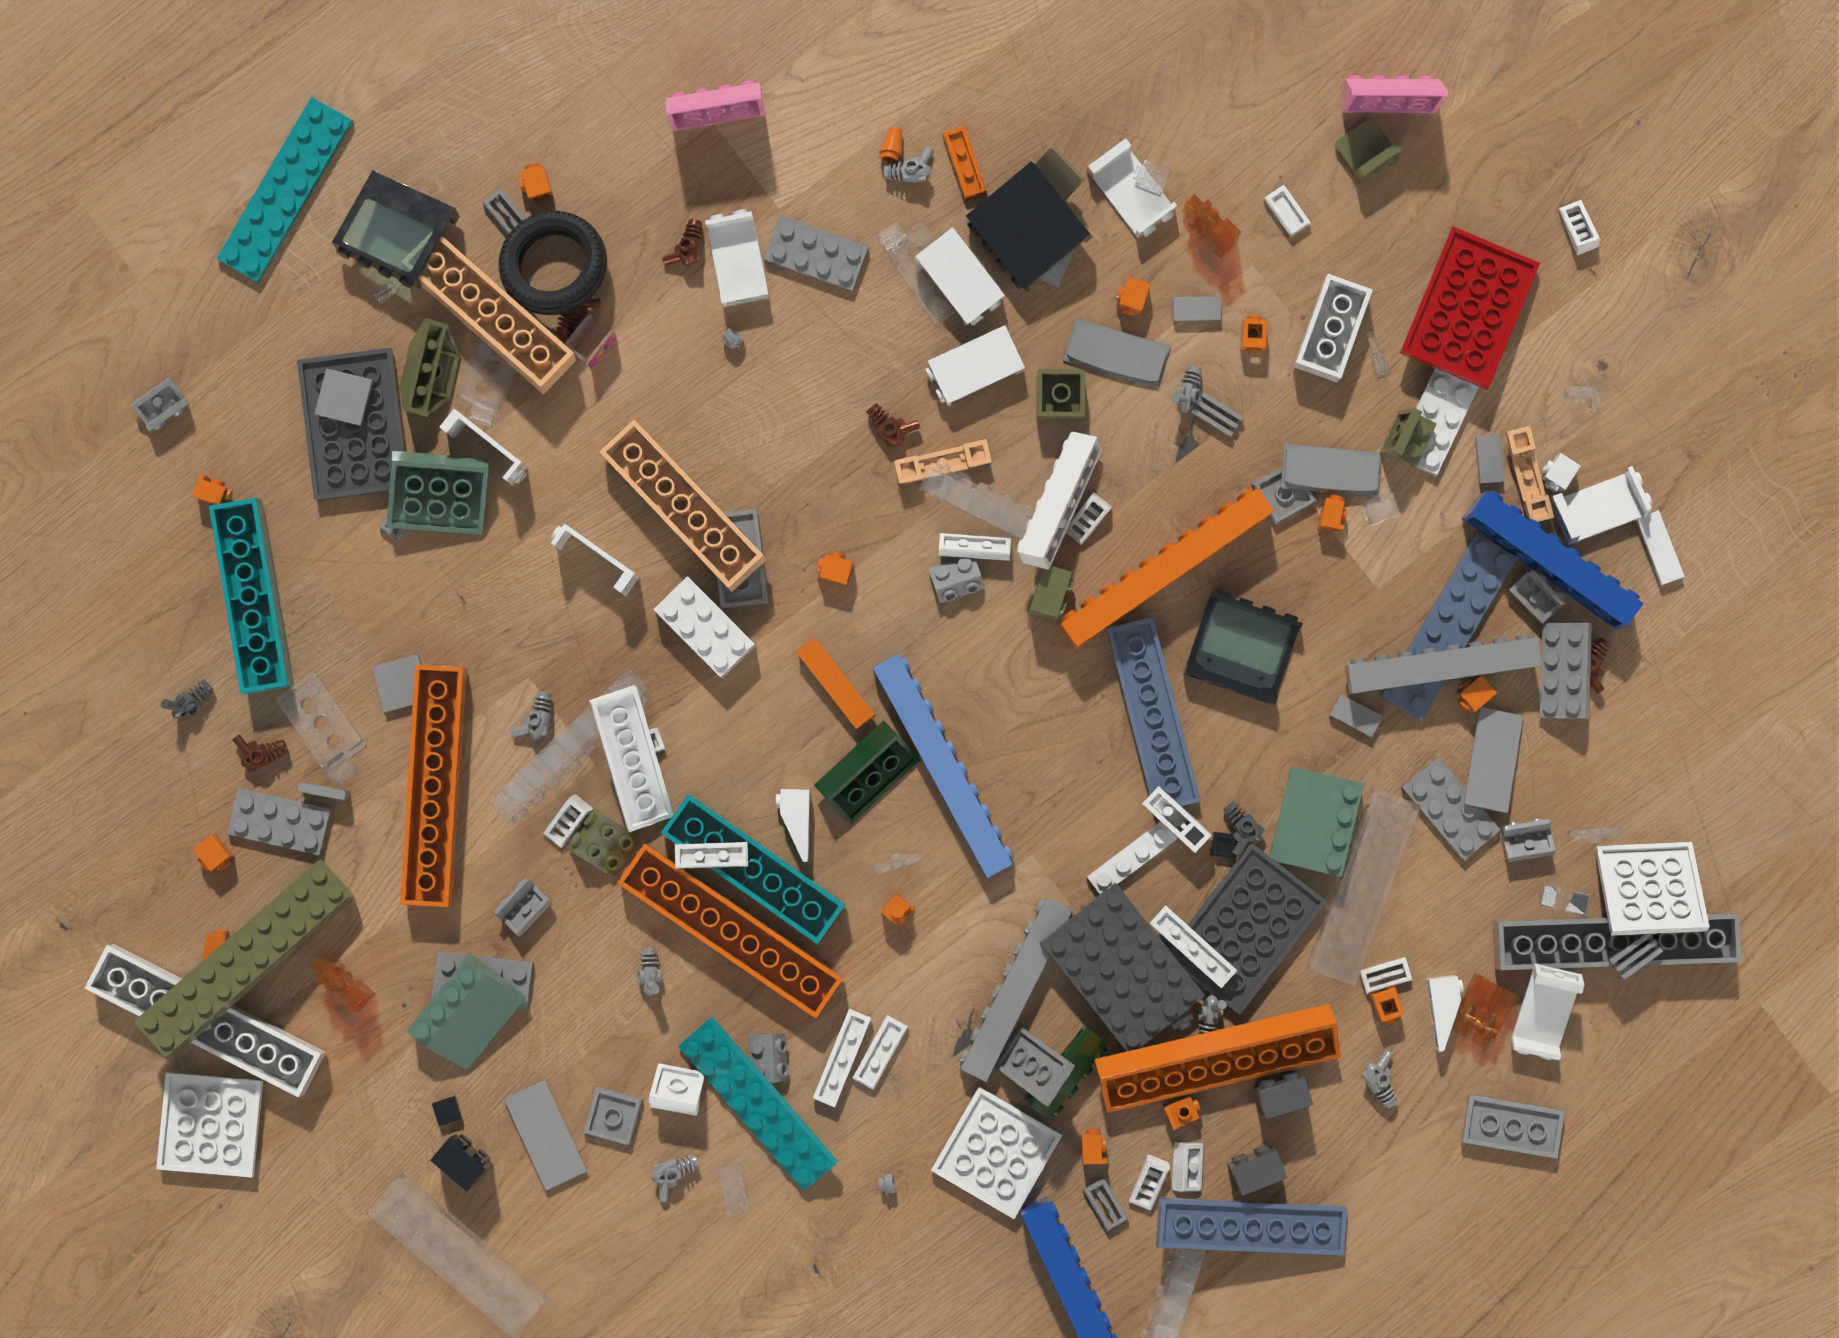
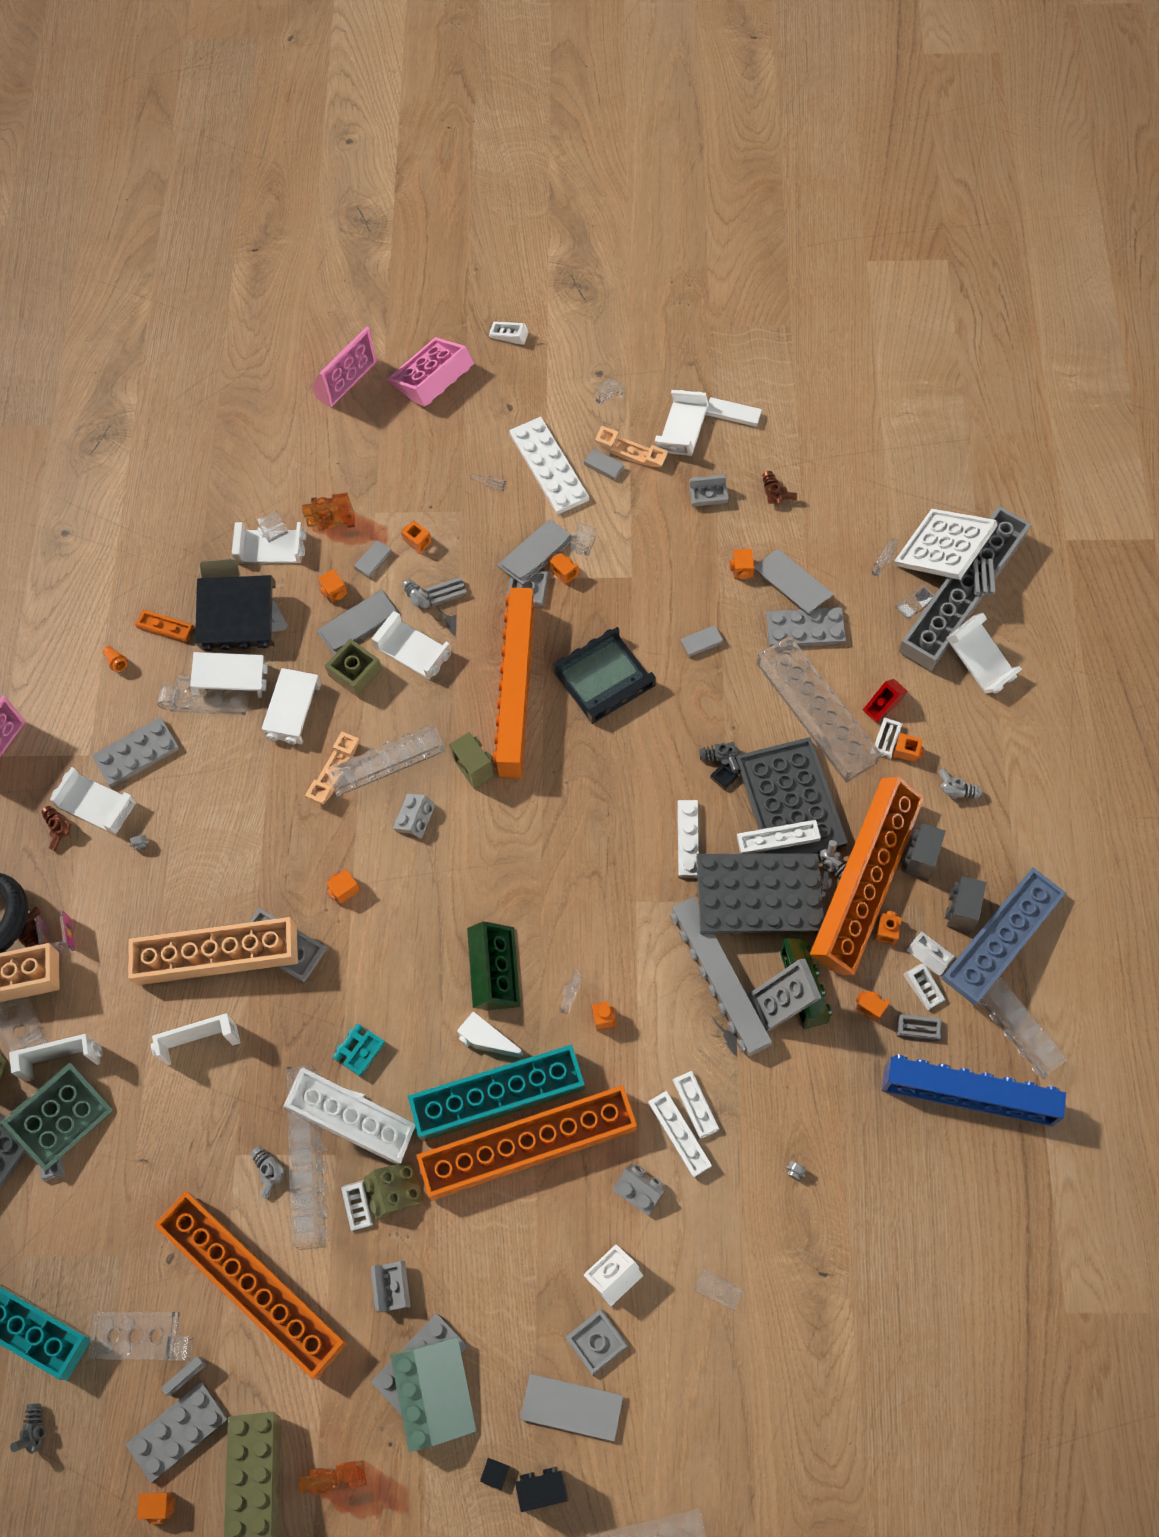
camera: 50 degrees left, 20 degrees down
(259, 755) = (117, 1406): copper piece -> none
(396, 682) = (157, 1255): light grey tile -> none
(649, 975) = (514, 1229): light grey piece -> none
(669, 1172) = (670, 1327): light grey piece -> none
(699, 718) = (364, 1051): none -> teal plate
(704, 627) = (305, 1001): white brick -> none
(711, 855) = (463, 1111): white tile -> none
(758, 1103) = (667, 1220): teal plate -> none
(835, 683) = (416, 942): orange slope -> none
(890, 429) = (282, 786): copper piece -> none
(912, 169) = (140, 657): light grey piece -> none
(942, 766) = (529, 913): medium blue brick -> none
(974, 546) = (403, 789): white tile -> none
(996, 1152) = (828, 1075): white plate -> none
(1059, 500) = (418, 710): white brick -> none
(1098, 501) = (441, 695): white slope -> none
(1129, 431) = (410, 647): none -> white panel
(1153, 710) = (604, 758): sand blue plate -> none
(1177, 819) = (685, 787): white slope -> none
(1287, 211) = (360, 472): white tile -> none
(1316, 821) = (753, 708): sand green slope -> none
(1332, 328) = (450, 490): white brick -> none
(1367, 149) = (365, 406): olive bracket -> none
(1408, 436) = (551, 493): olive bracket -> none
(1424, 946) = (885, 700): none -> red slope
(1443, 665) = (709, 566): light grey brick -> none
(1443, 1004) = (932, 714): white slope -> none
(1455, 616) = (688, 554): sand blue plate -> none
(1465, 184) = (431, 370): none -> bright pink slope
(1469, 308) = (504, 412): red plate -> none
(1476, 1014) = (953, 693): clear orange hips -> none
(1512, 1126) = (1046, 729): light grey plate -> none
(1528, 840) = (860, 595): light grey bracket -> none
(1555, 561) = (675, 469): blue brick -> none
(1559, 473) = (643, 431): white brick -> none
(1565, 670) = (768, 505): light grey plate -> none

